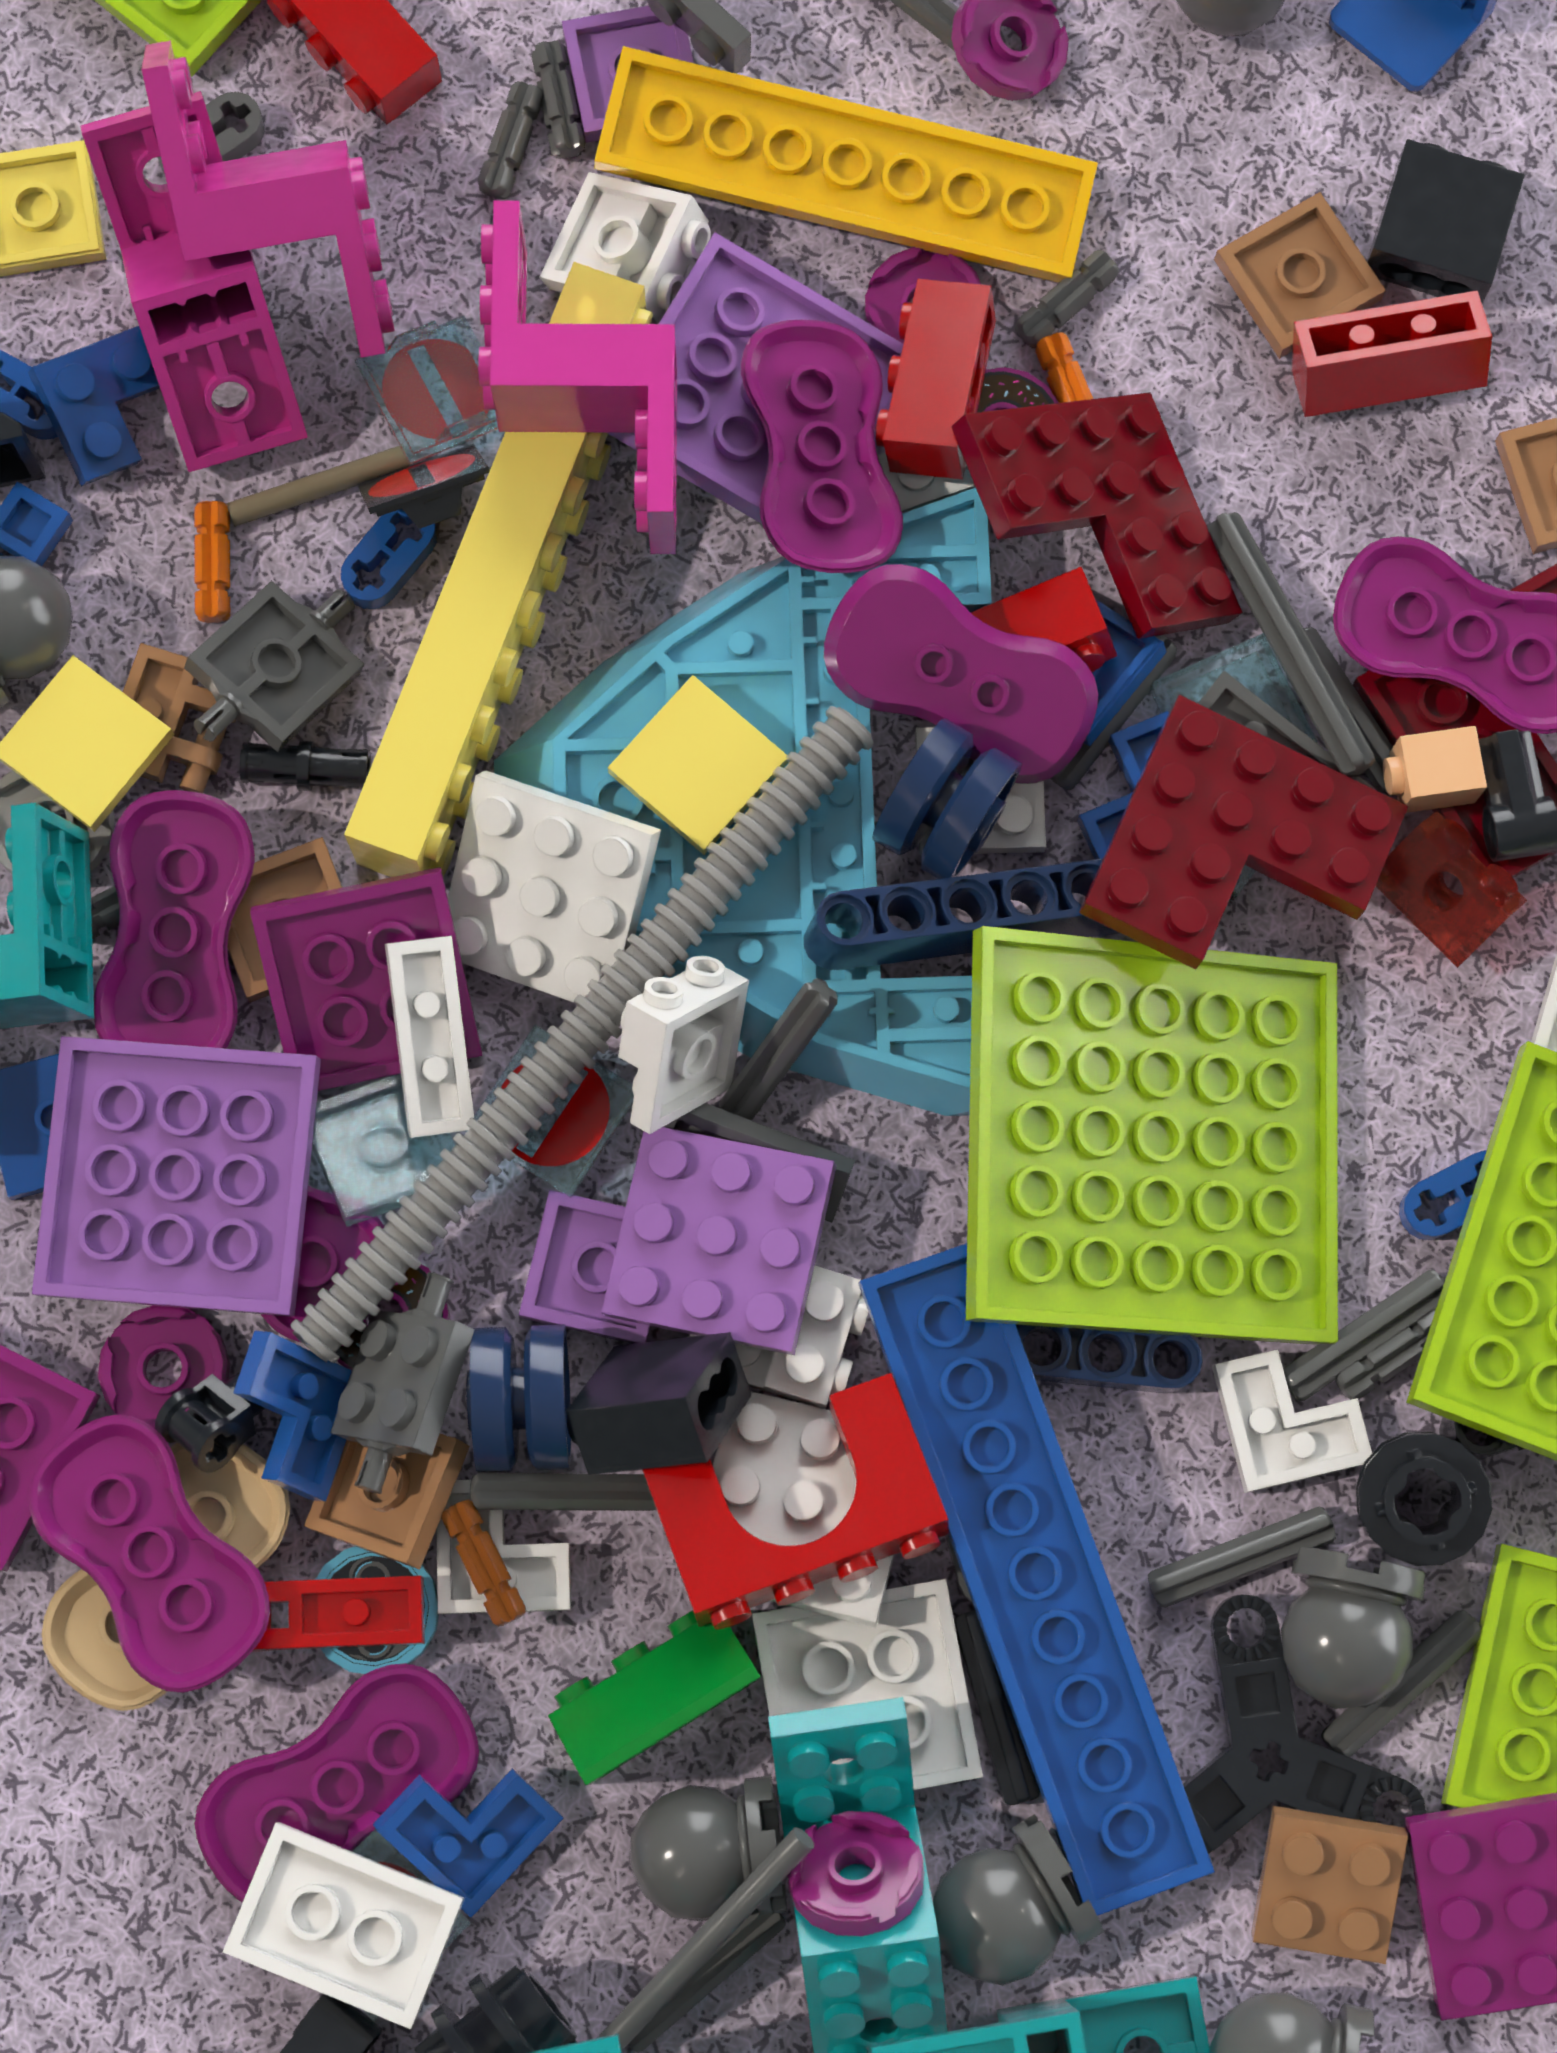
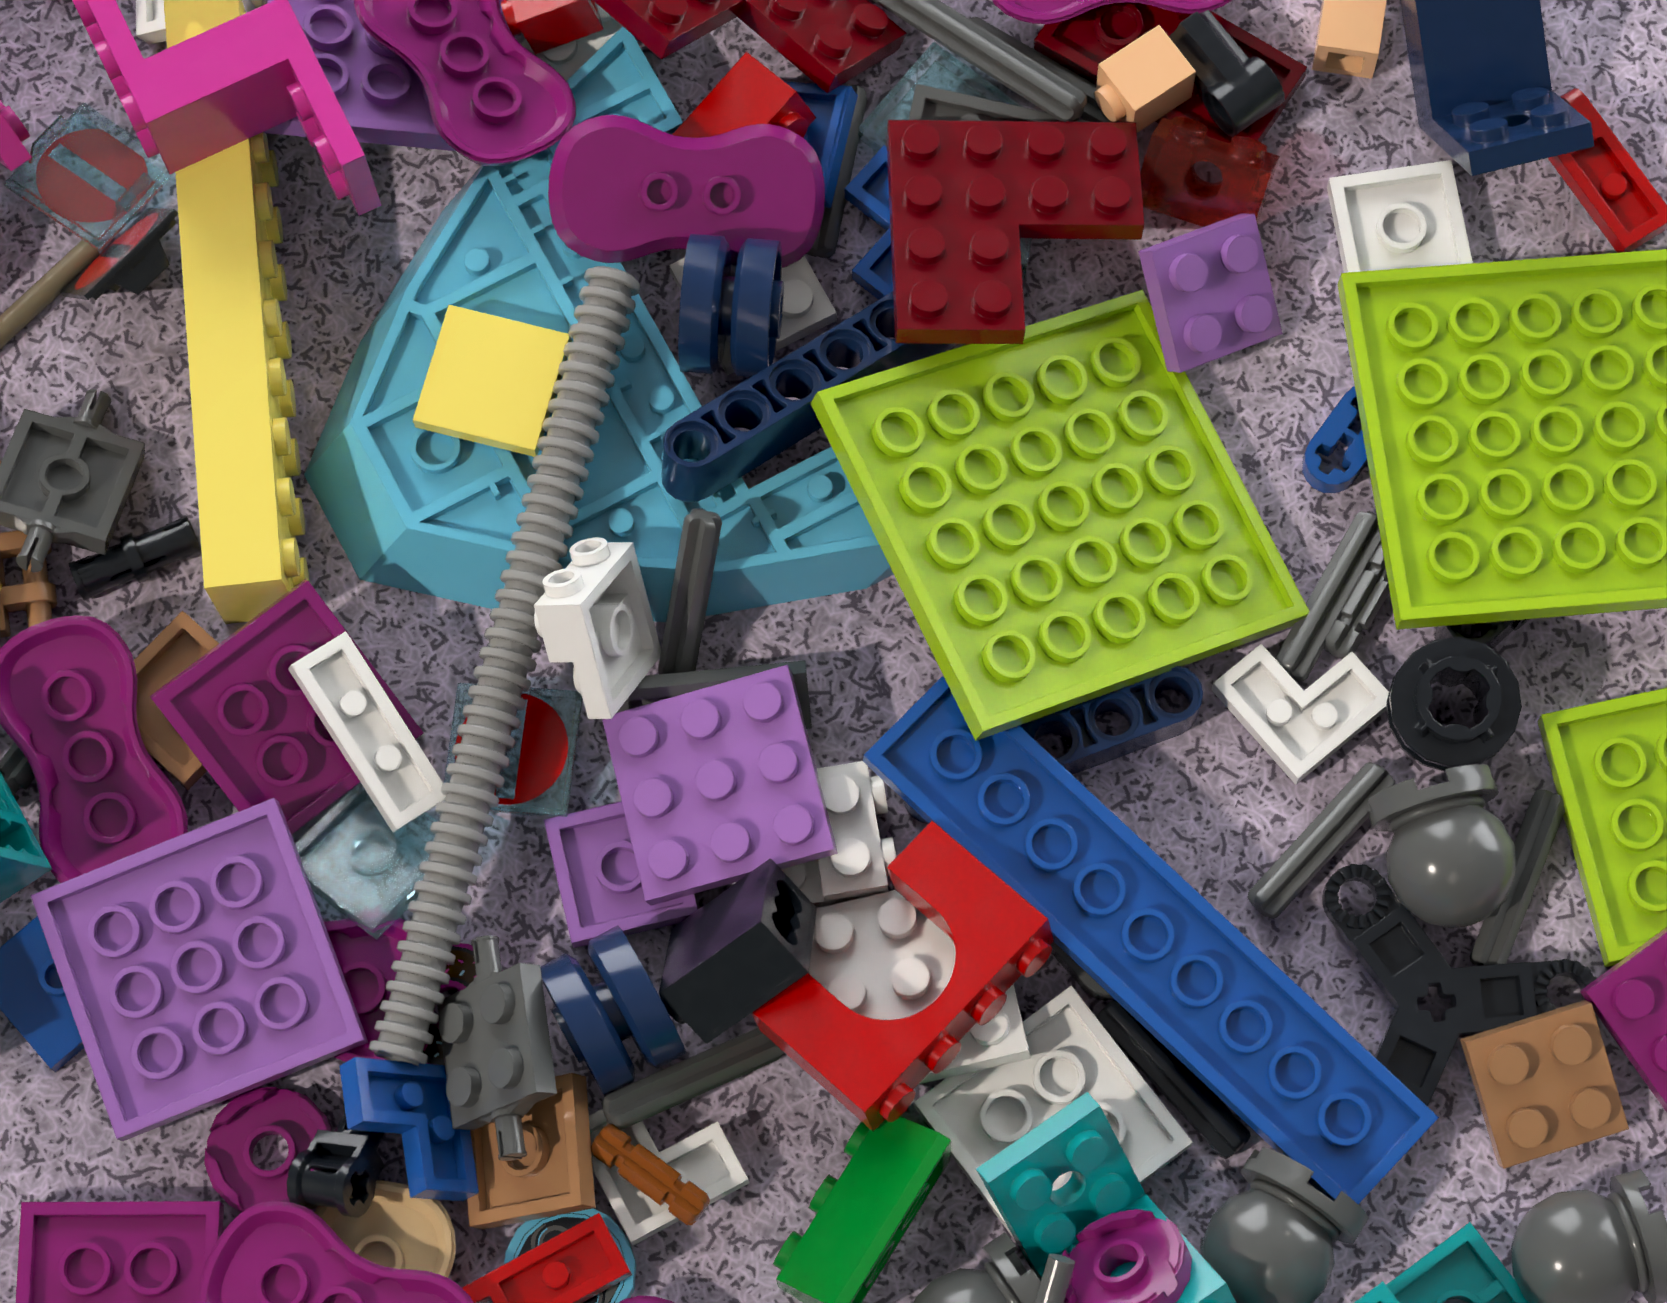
camera: 20 degrees left, 5 degrees down
(400, 564) = (106, 335): blue beam -> none
(546, 885) = (409, 551): white plate -> none
(1396, 999) = (1210, 292): none -> medium lavender plate

